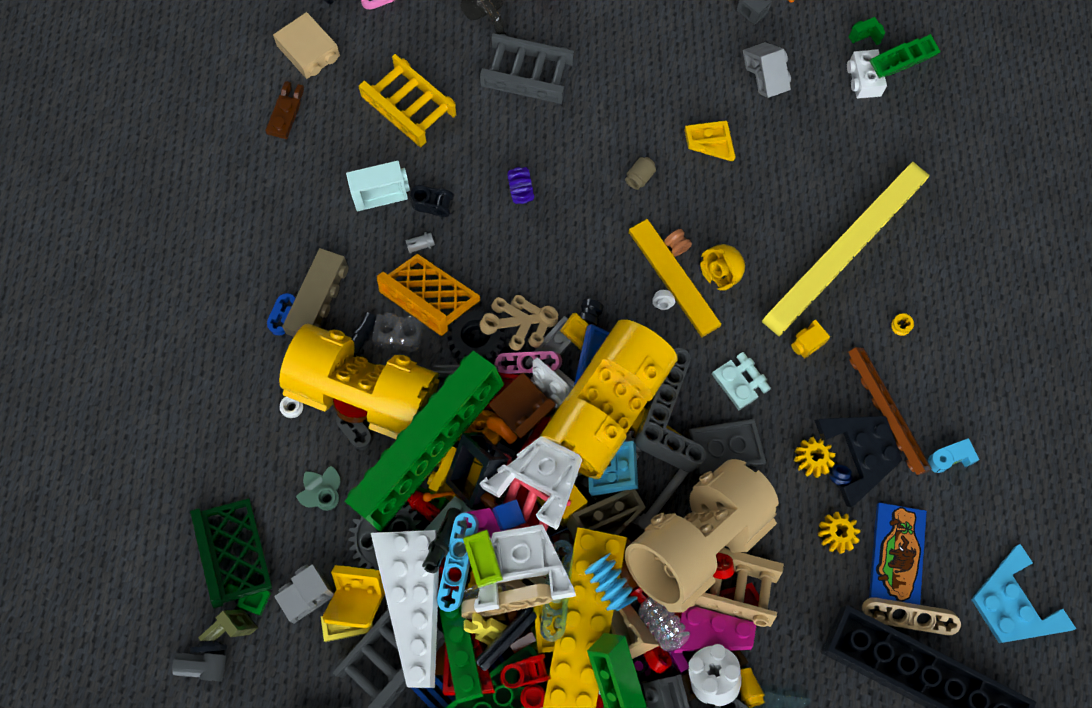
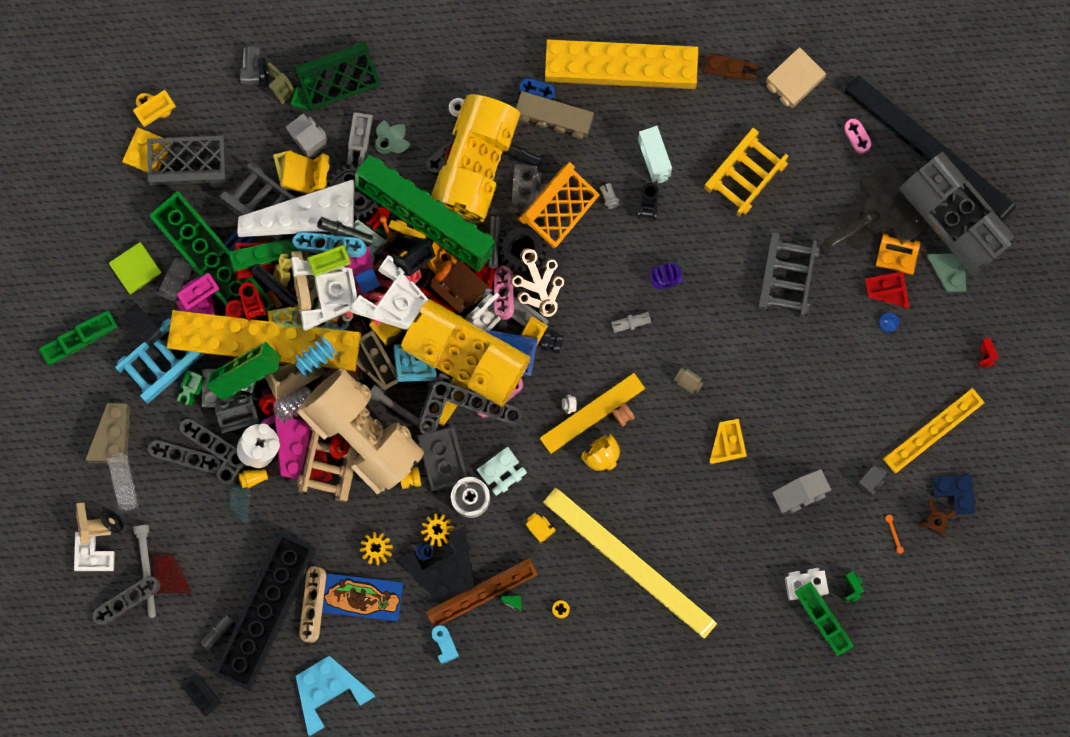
camera: 90 degrees right, 10 degrees up
(264, 220) = (621, 64): none -> yellow brick
(313, 528) = (359, 136): none -> light grey hinge
(570, 229) = (631, 322): none -> light grey pin
(783, 404) = (476, 488): none -> white brick
(902, 370) = (513, 602): none -> green slope

